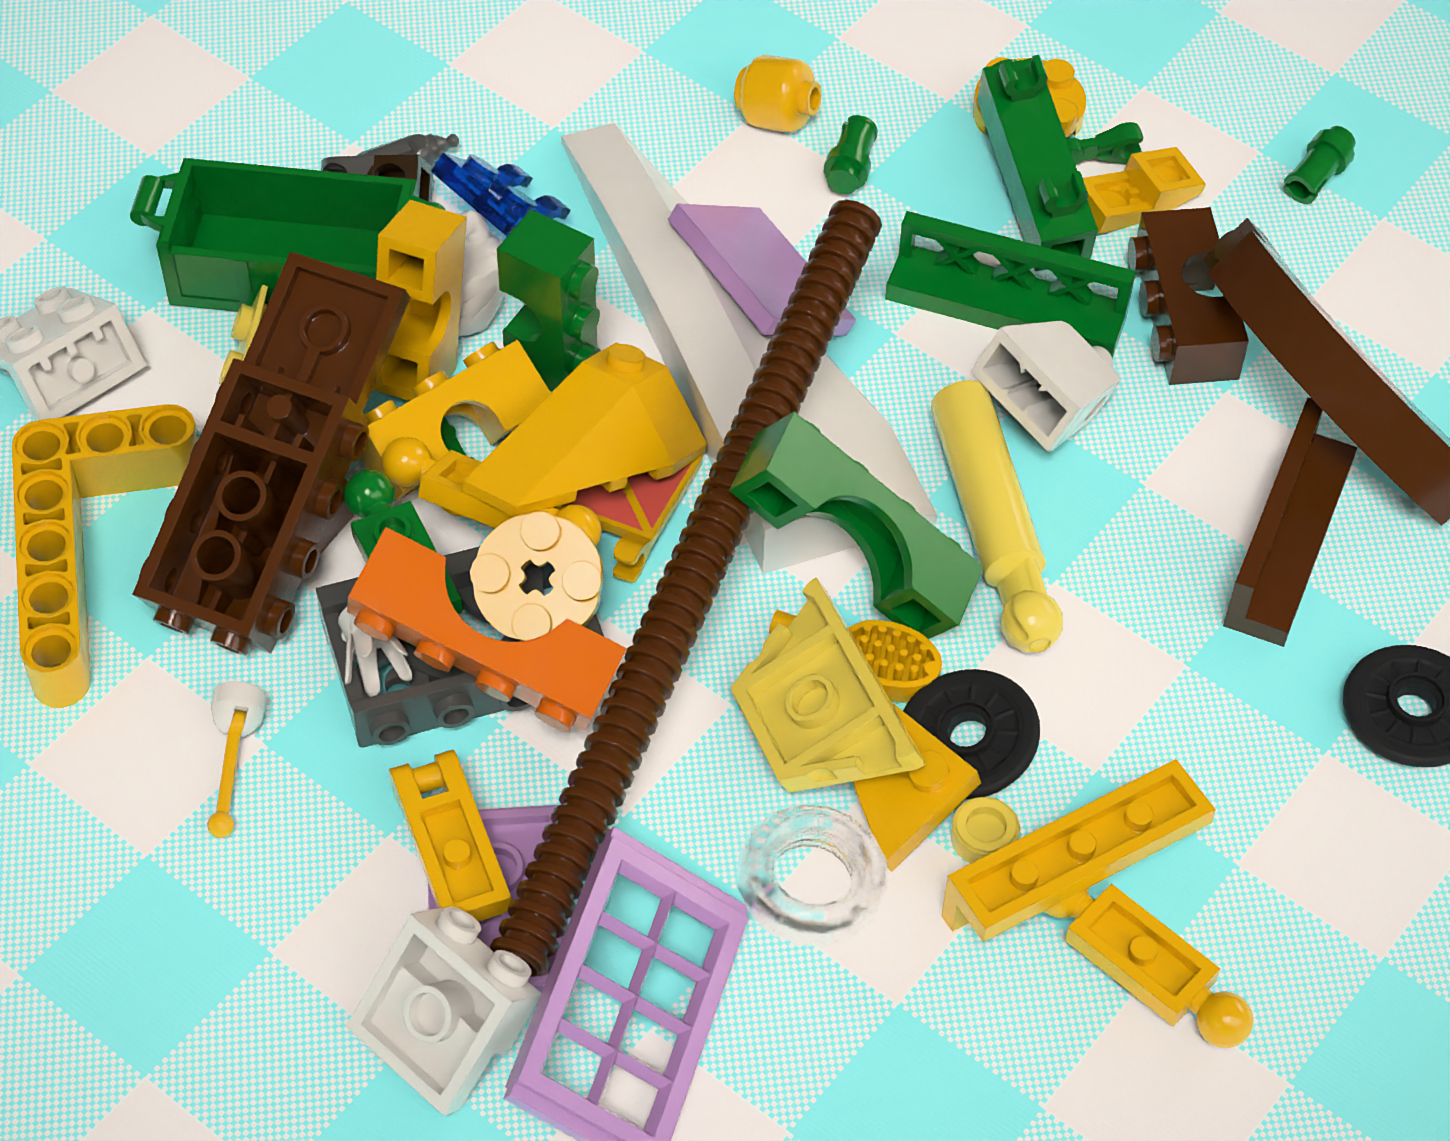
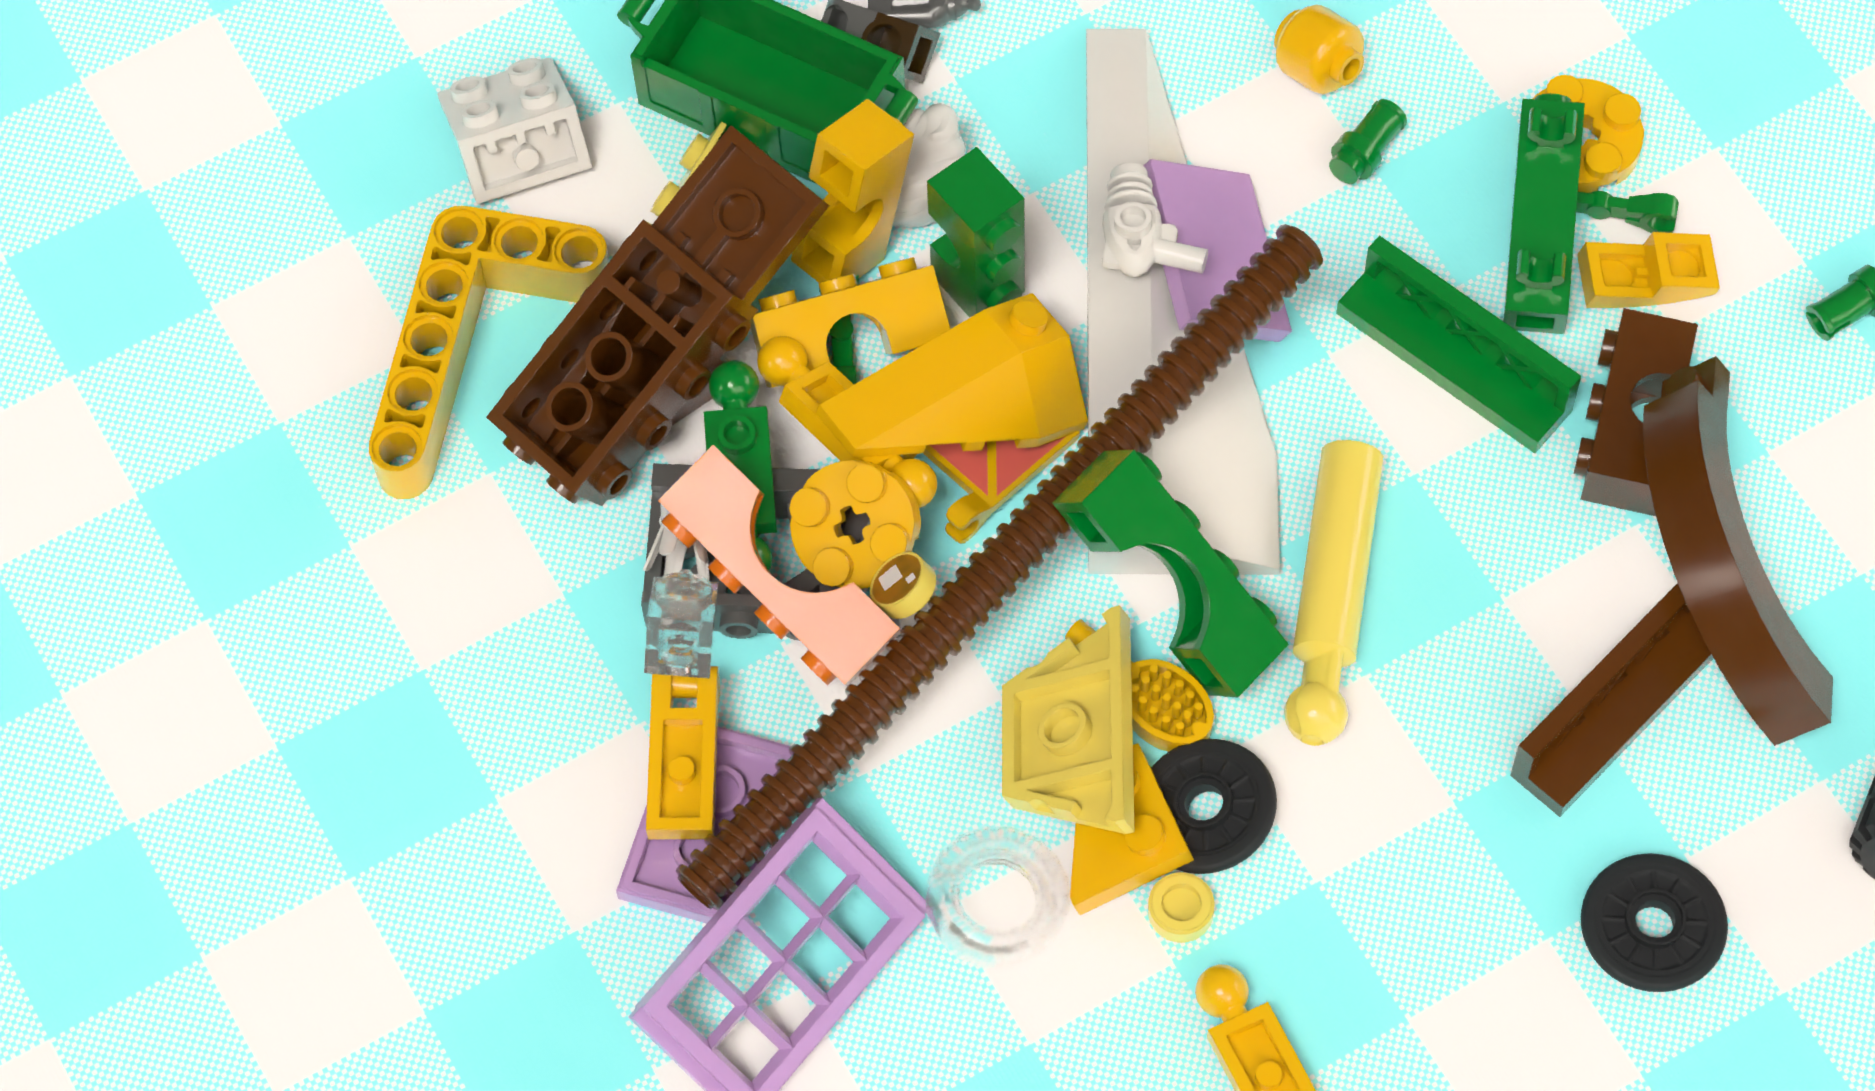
camera: 25 degrees right, 10 degrees up
(236, 712) = (546, 561): hinge -> none
(408, 713) = (681, 625): none -> clear brick
(443, 1006) = (617, 909): white plate -> none
(493, 190) = (979, 96): clear blue plate -> none
(612, 610) = (903, 585): none -> tile
(692, 261) = (1135, 228): none -> white piece
(1047, 378) = (1444, 464): white torso -> none
(1075, 851) = (1246, 961): yellow fence -> none

